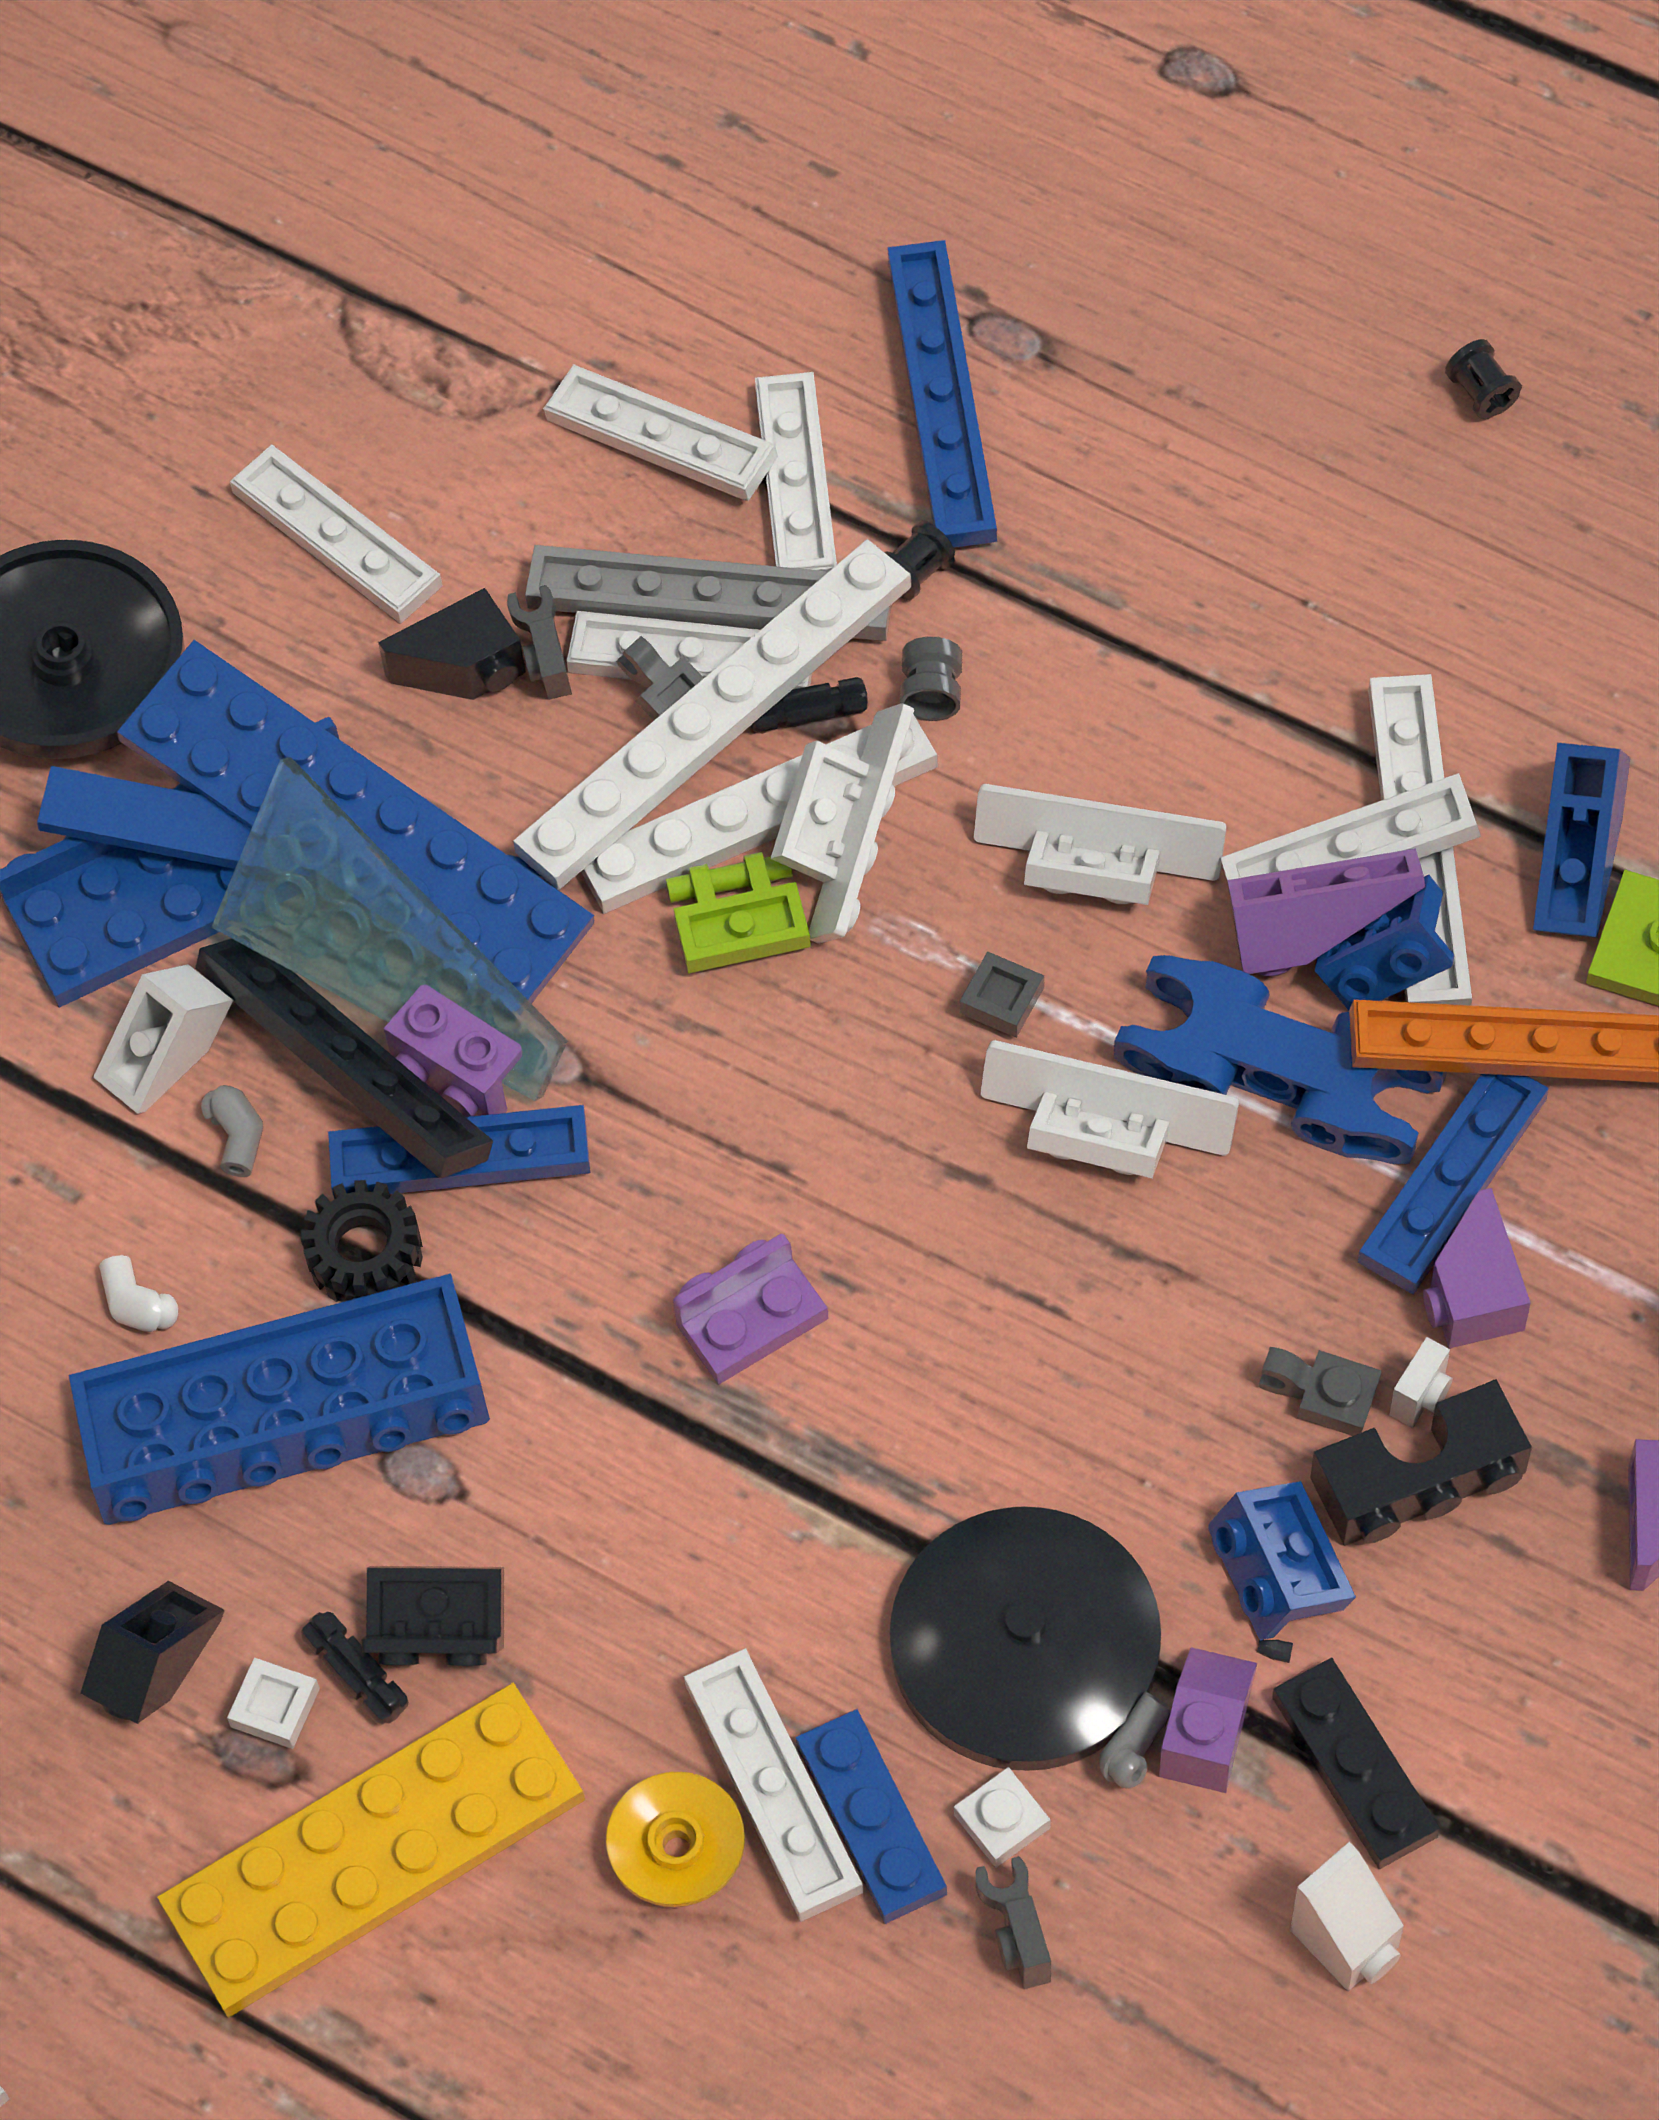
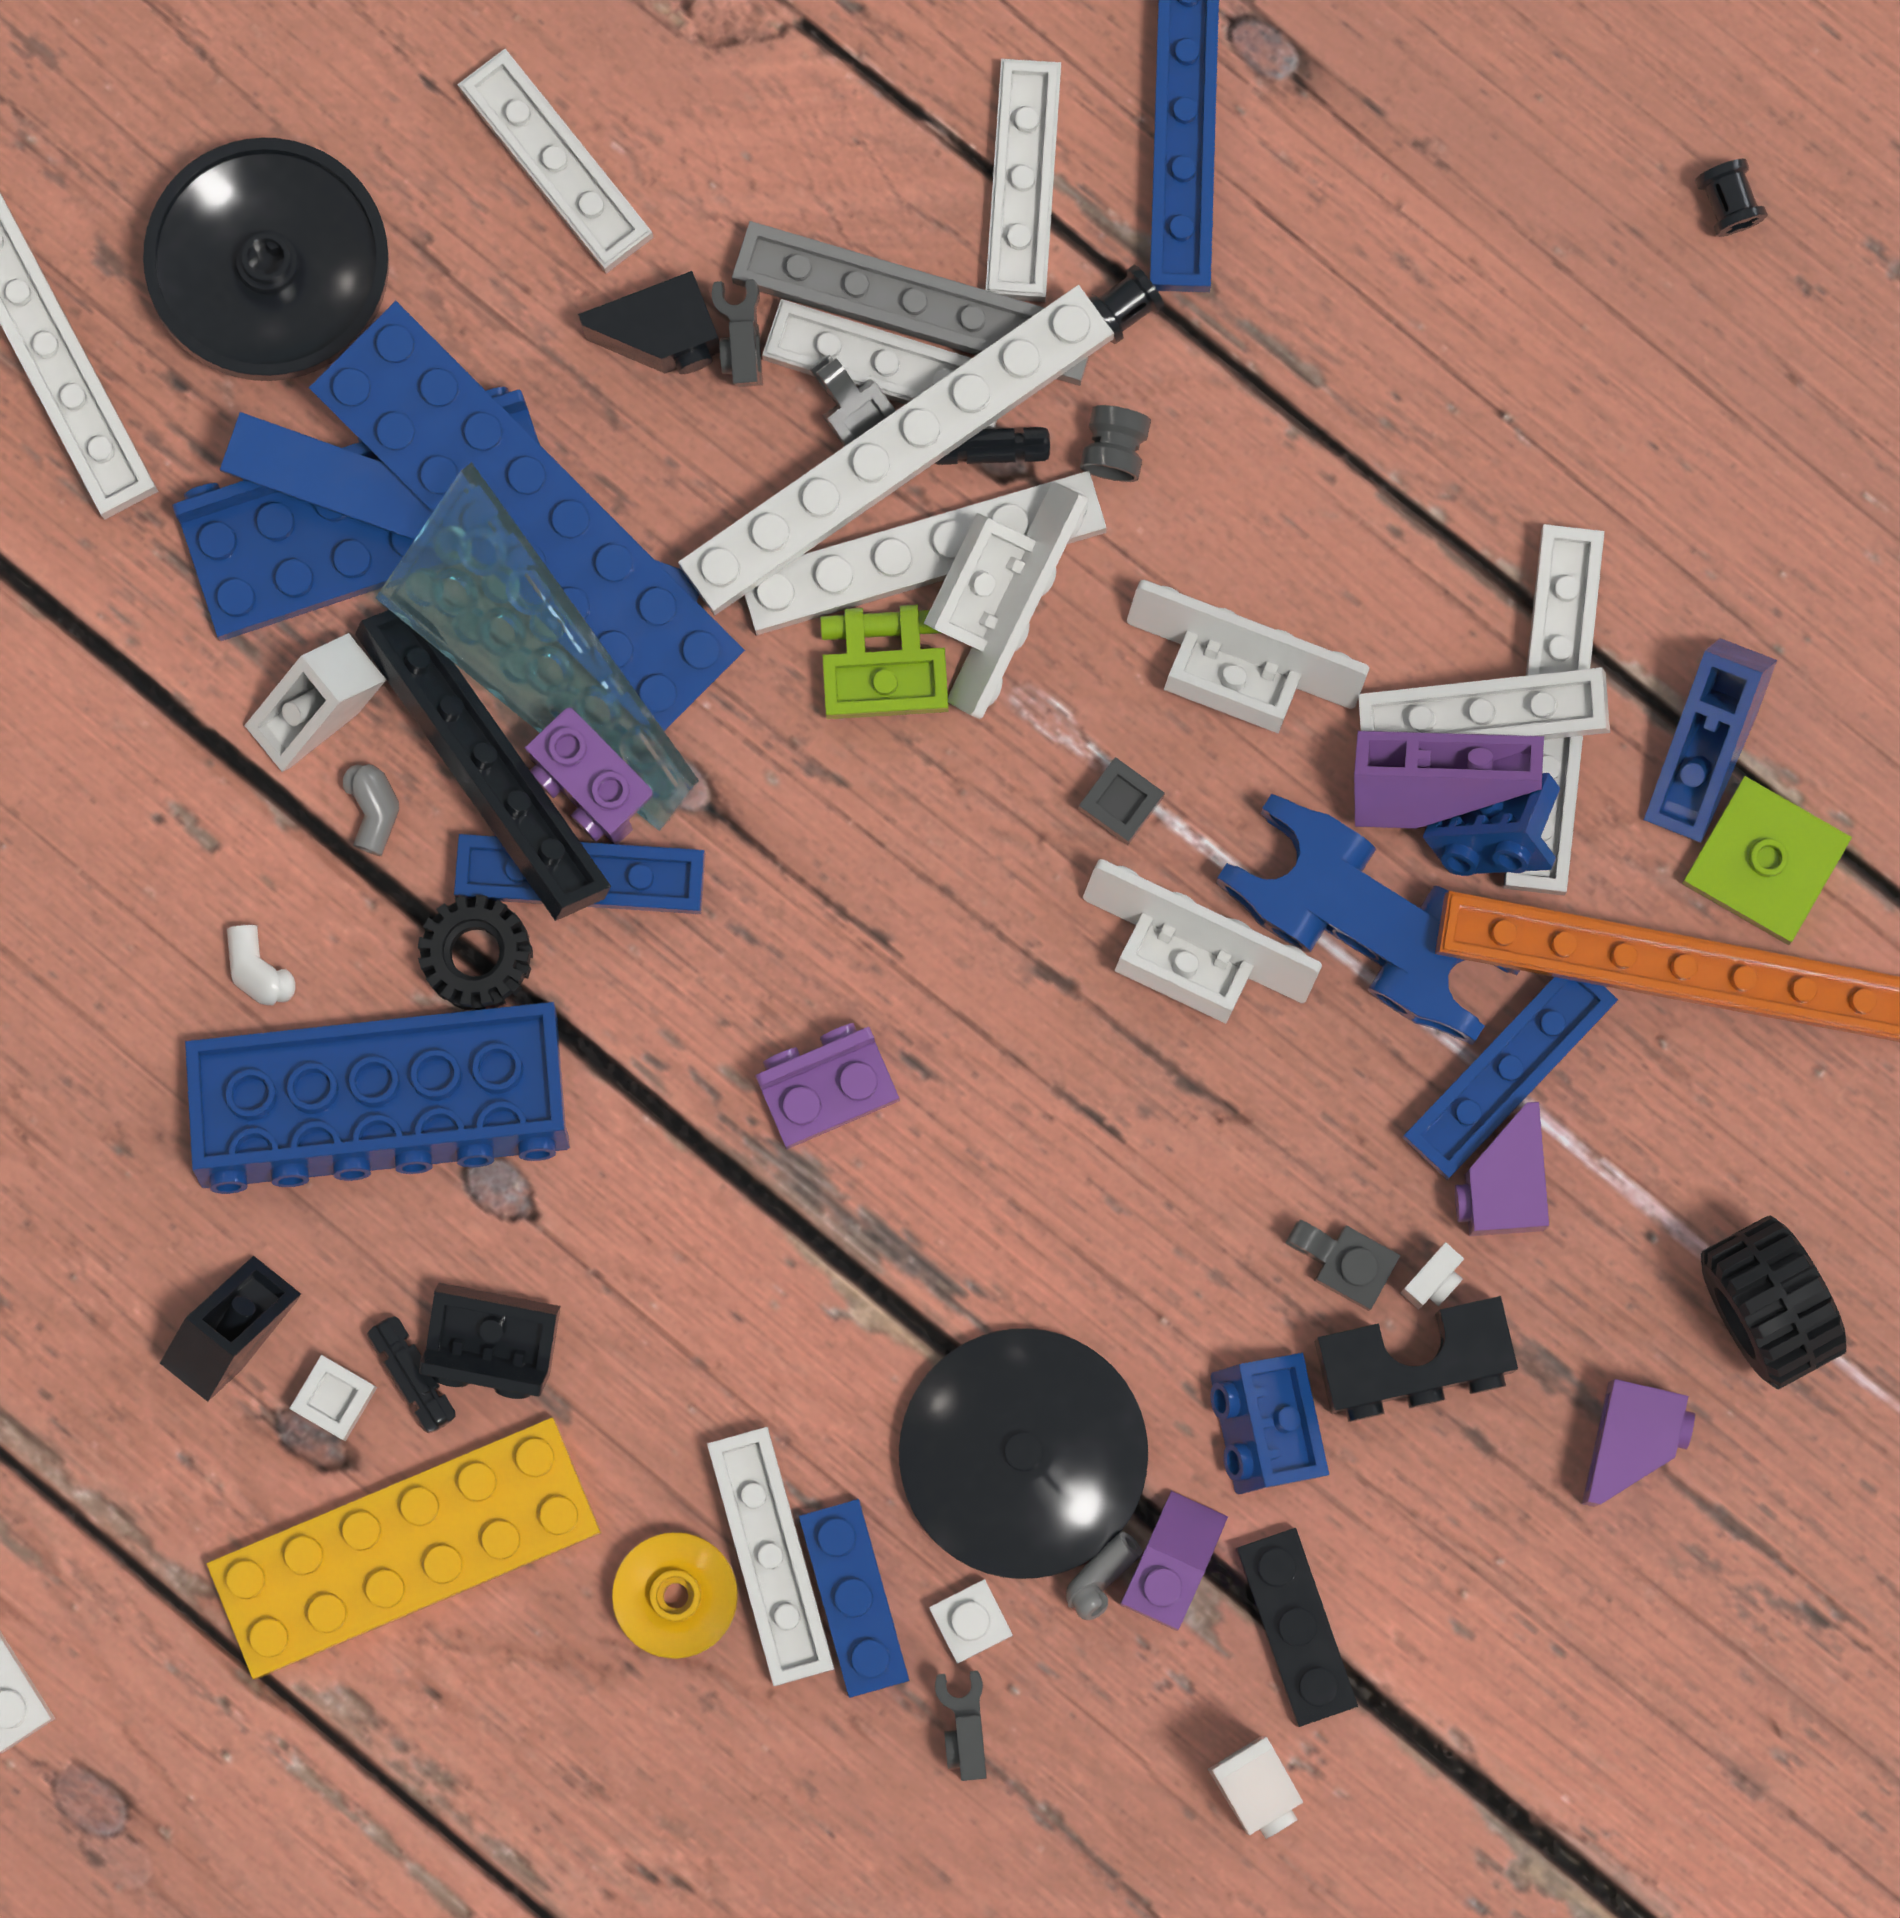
camera: 10 degrees right, 20 degrees up
(661, 432) = (896, 107): white tile -> none
(1275, 1649) = (1248, 1504): black piece -> none

